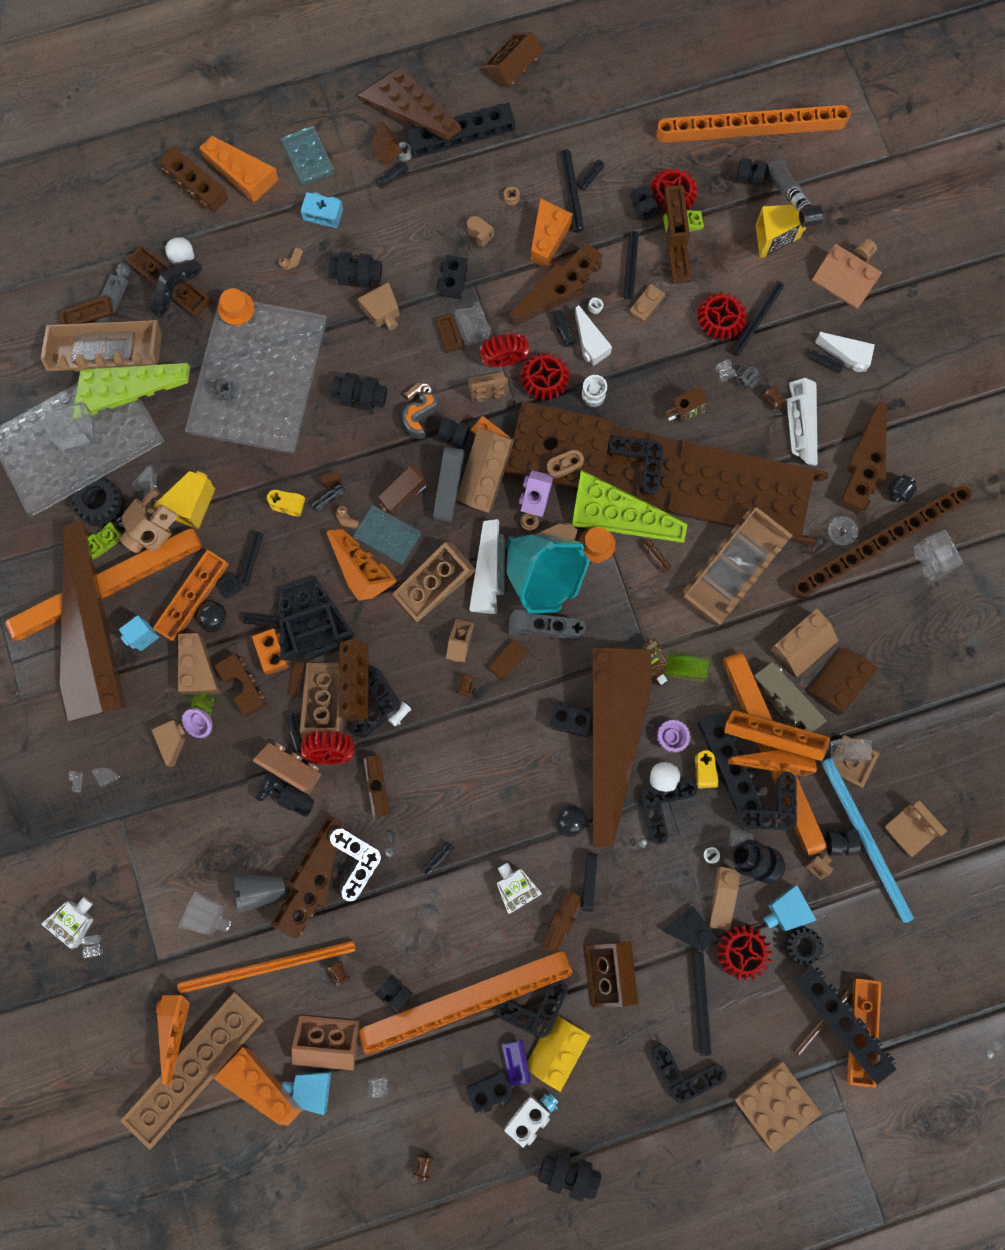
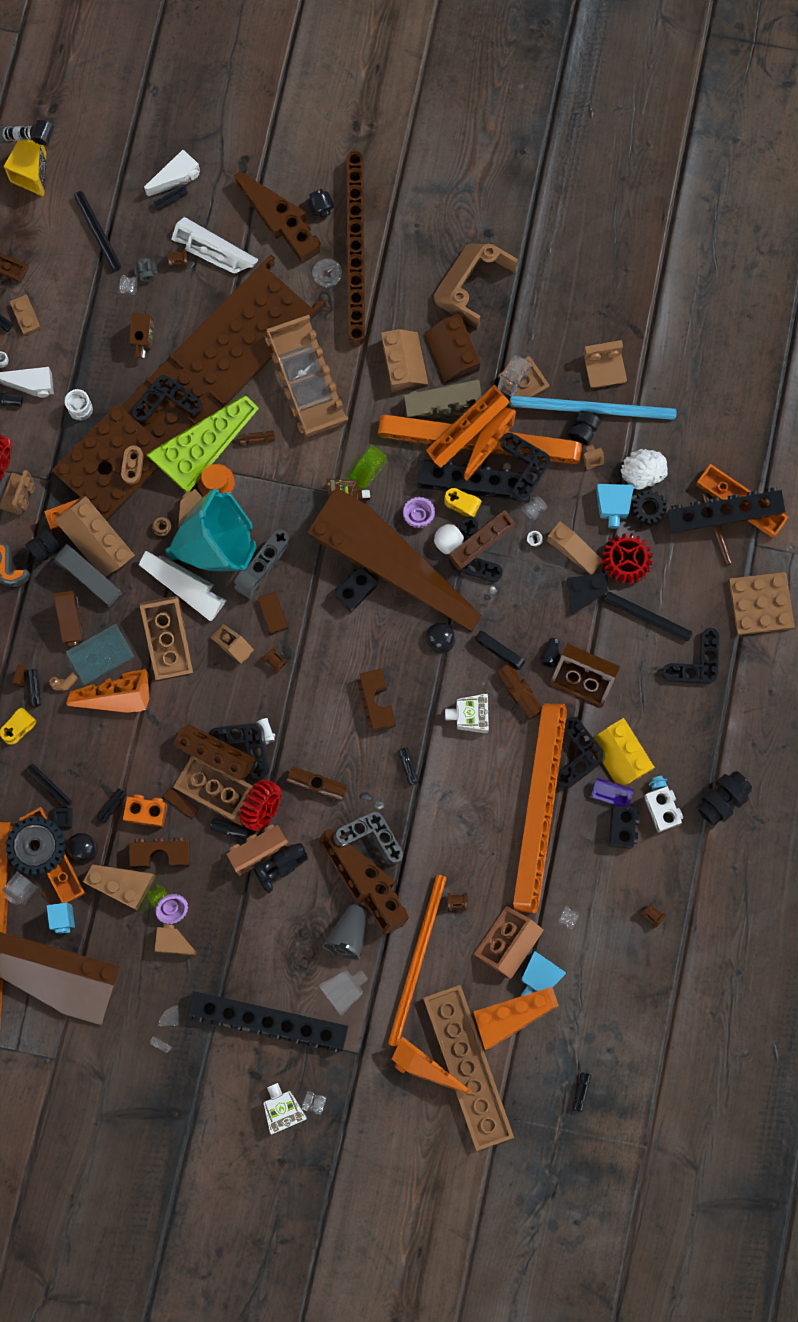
camera: 60 degrees left, 0 degrees up
(145, 585) = (19, 889): none -> clear brick
(161, 910) = (201, 1000): none -> black brick
(178, 566) = (24, 835): none -> wheel
(225, 1190) = (581, 1093): none -> black axle
(309, 622) = (138, 762): black wedge -> none
(393, 993) = (500, 862): black wheel -> none
(466, 806) = (371, 684): none -> reddish brown arch
(533, 503) = (149, 512): lavender brick -> none
(558, 371) = (41, 425): red gear -> none
(612, 931) = (550, 655): none -> black cone
(681, 807) = (481, 539): none -> reddish brown plate
(707, 313) = (67, 270): red gear -> none
(758, 861) = (561, 502): black piece -> none
(838, 921) = (644, 468): none -> white hair
(846, 276) = (107, 135): nougat slope -> none
(865, 250) = (94, 109): medium nougat leg -> none
(892, 648) = (450, 293): none -> medium nougat windscreen
(937, 555) = (394, 210): clear brick -> none

